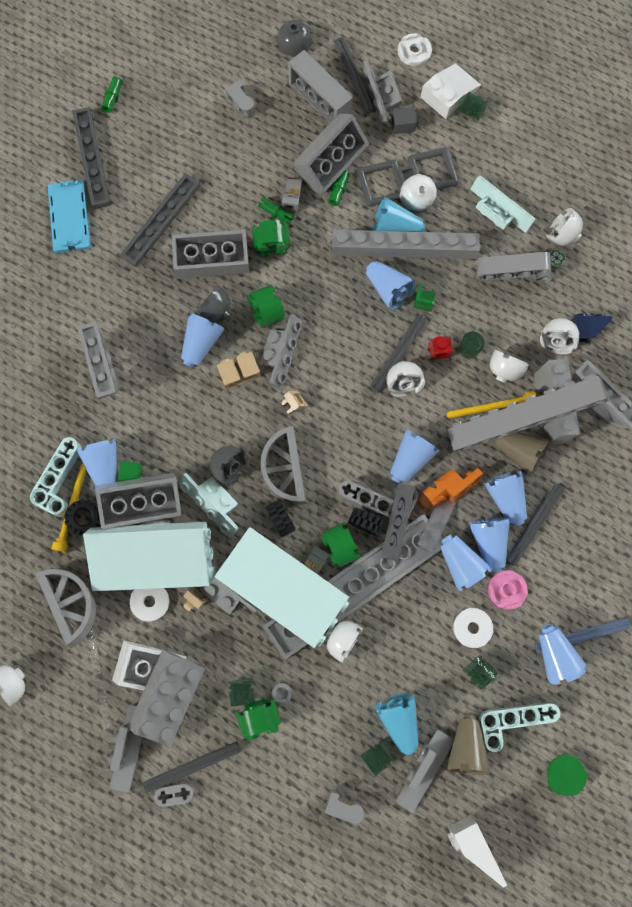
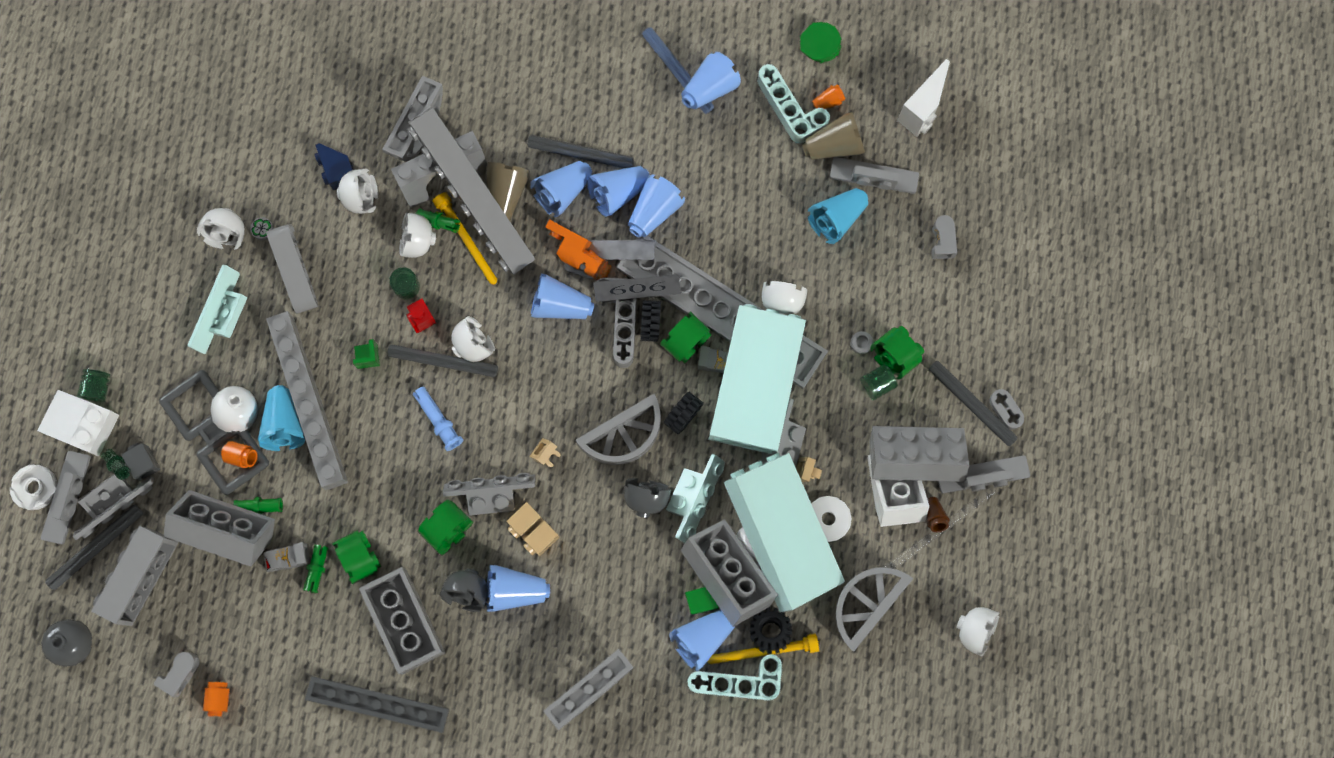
camera: 110 degrees left, 0 degrees up
(111, 691) = (936, 518): none -> reddish brown cone
(212, 118) = (216, 698): none -> orange brick
(345, 334) = (443, 427): none -> light blue pin
(377, 758) = (883, 223): clear green piece -> none
(382, 185) = (238, 454): none -> orange brick
(390, 284) = (363, 399): light blue cone -> none
(398, 66) = (65, 497): none -> light grey bracket
(407, 101) = (116, 464): none -> clear green axle
(476, 669) = (755, 156): clear green piece -> none
(484, 623) = (714, 165): white tile -> none
(502, 593) = (659, 162): bright pink tile -> none
(510, 760) = (829, 98): none -> orange cone
(514, 389) = (439, 221): none -> green pin

